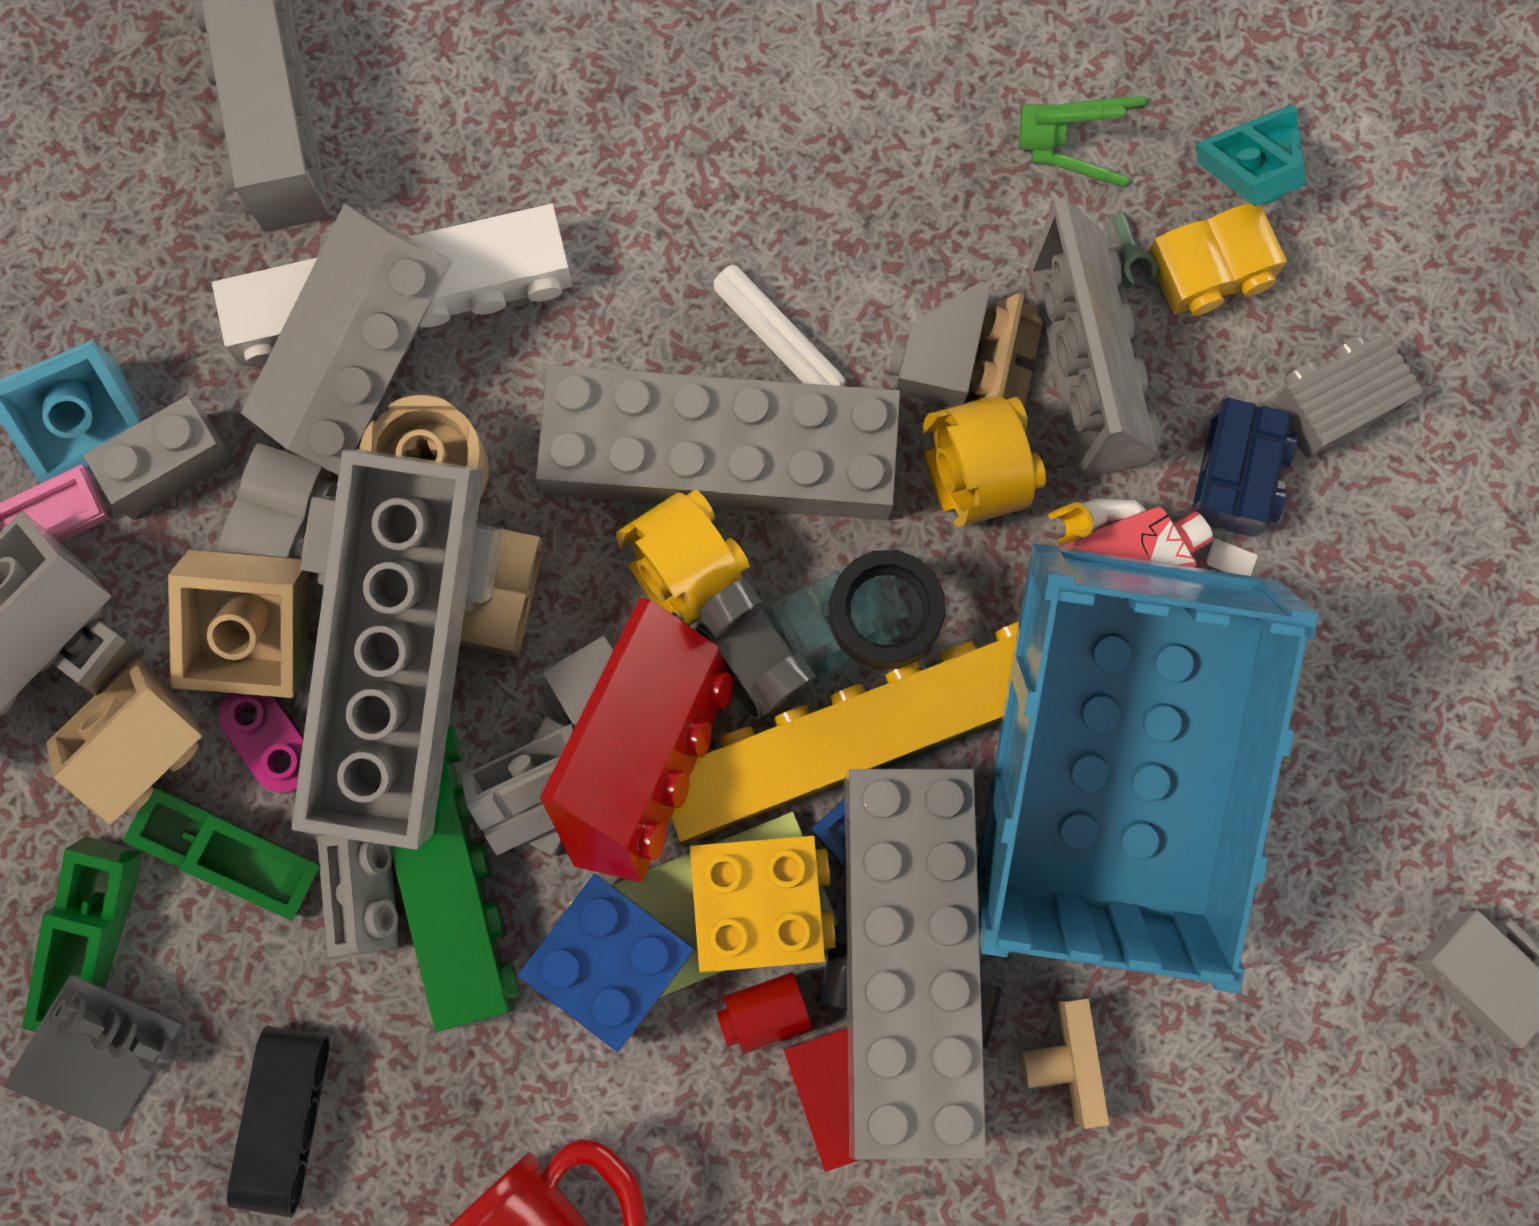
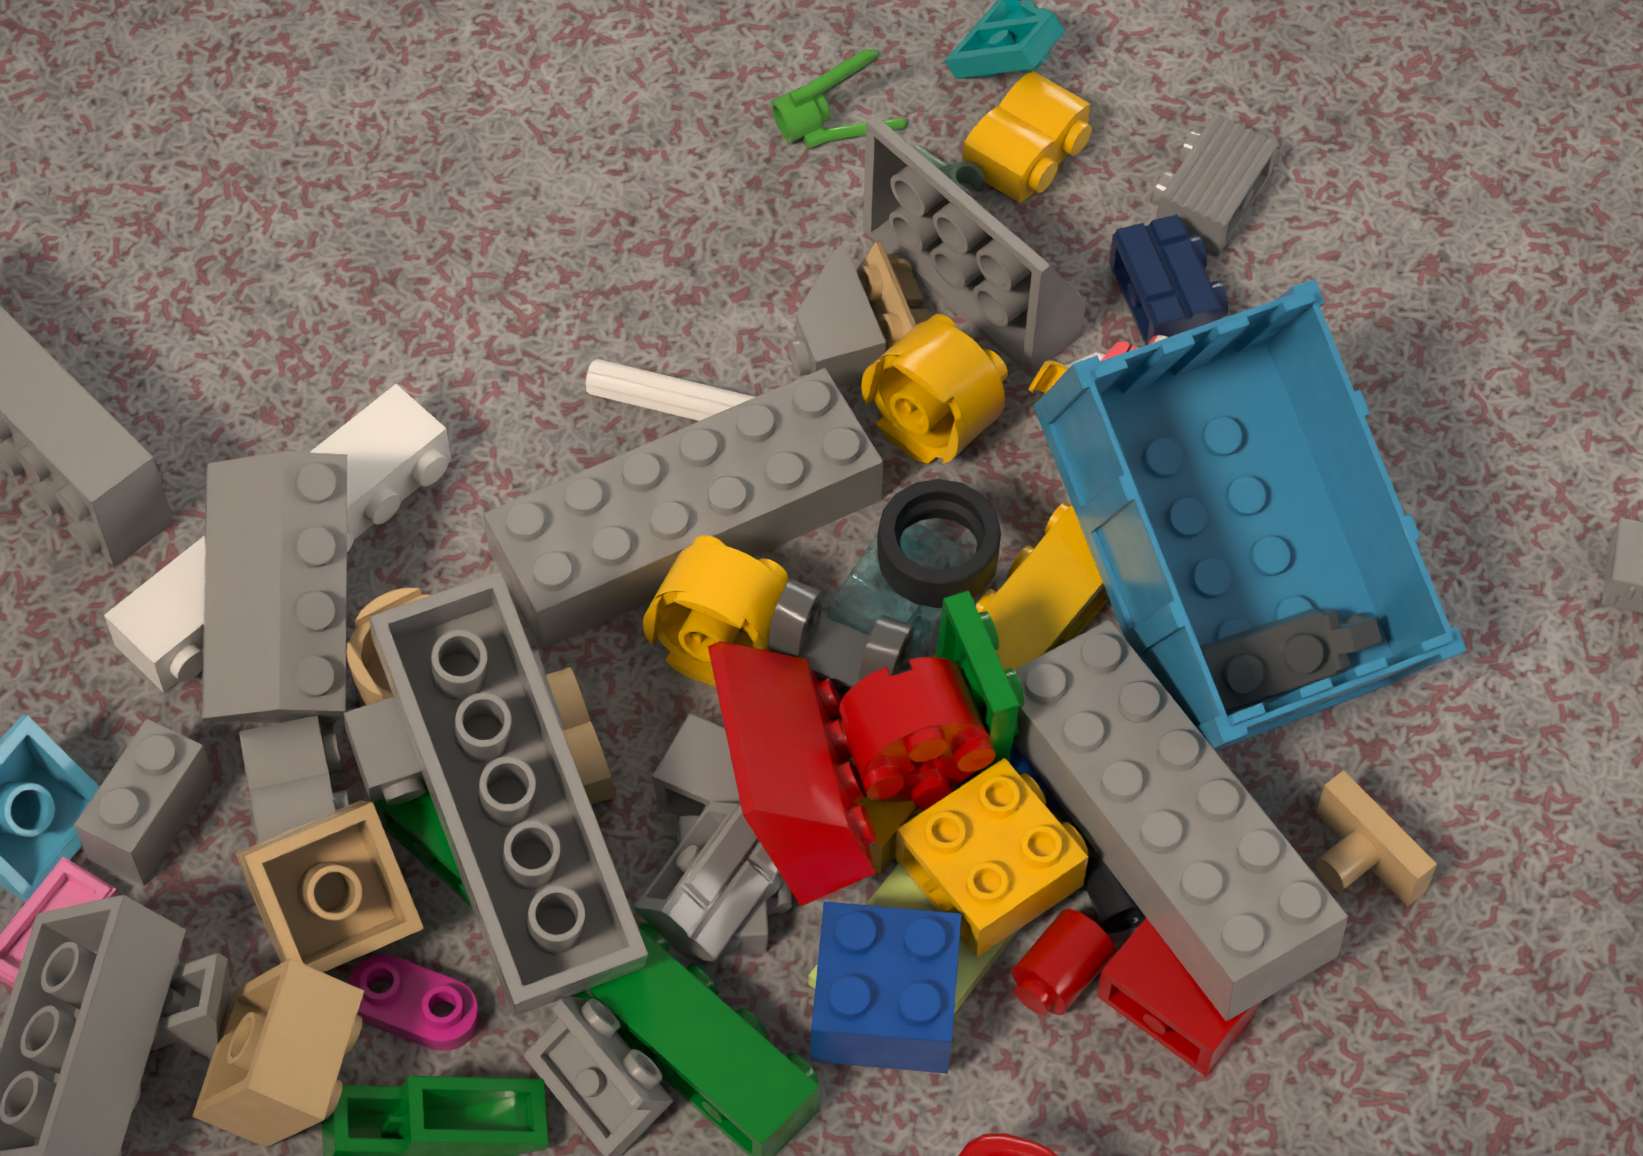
camera: 30 degrees left, 20 degrees down
(749, 779) = (915, 732): none -> red brick
(836, 739) = (971, 642): none -> green plate
(1107, 870) = (1286, 654): none -> dark grey hinge

